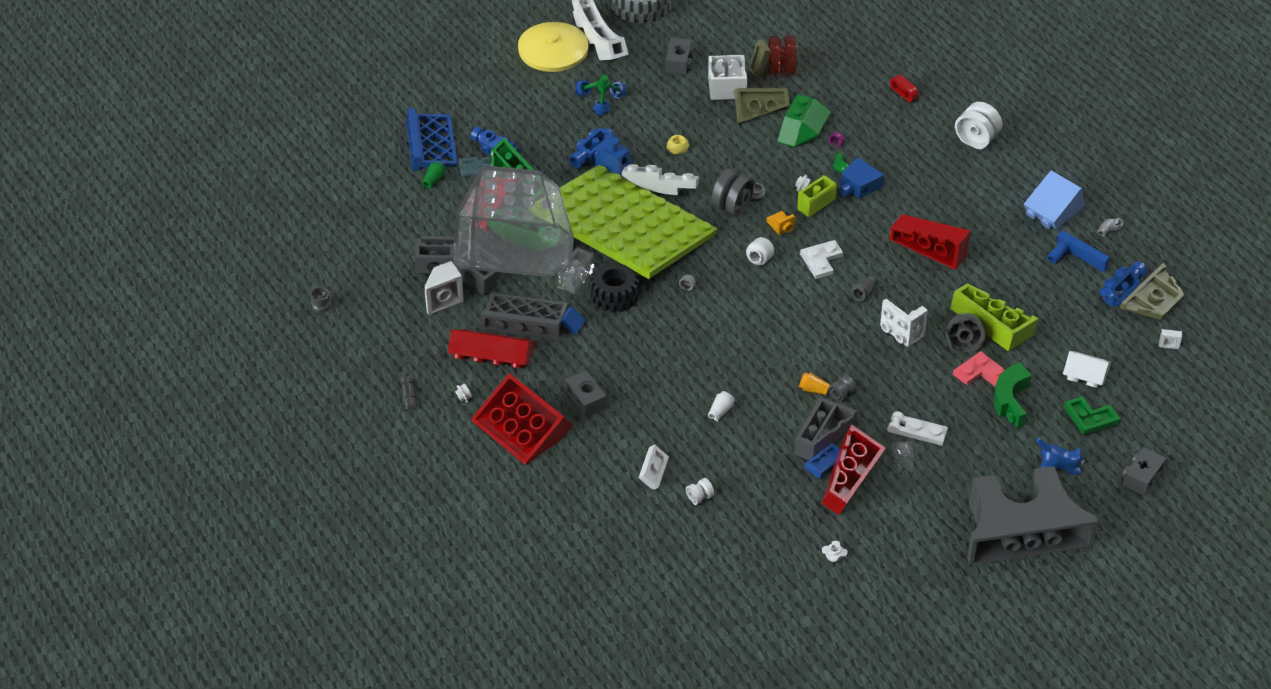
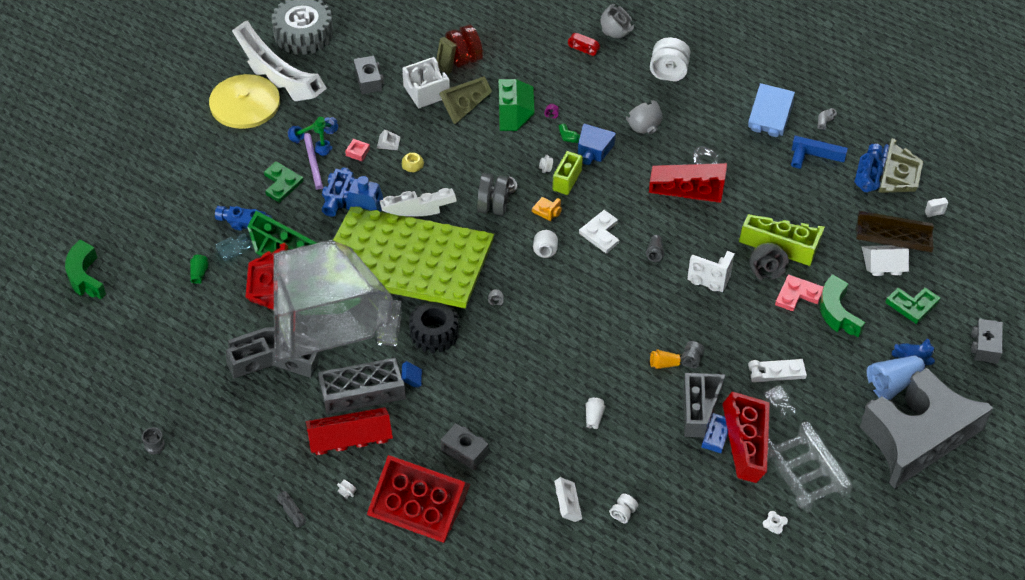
camera: 25 degrees left, 5 degrees up
(329, 140) = (76, 264): none -> green arch
(417, 140) = (163, 238): blue fence -> none
(443, 288) = (275, 384): white slope -> none
(551, 125) = (284, 180): none -> green plate
(587, 115) = (313, 162): none -> lavender bar
(631, 118) = (357, 150): none -> coral tile
(666, 120) = (388, 140): none -> white slope
(909, 508) = (817, 452): none -> clear fence
(922, 170) = (645, 118): none -> light grey cylinder
(947, 76) = (616, 22): none -> light grey cylinder
(960, 216) = (702, 151): none -> clear piece
(1020, 465) = (893, 375): none -> light blue cone
(1110, 345) = (895, 231): none -> dark brown fence

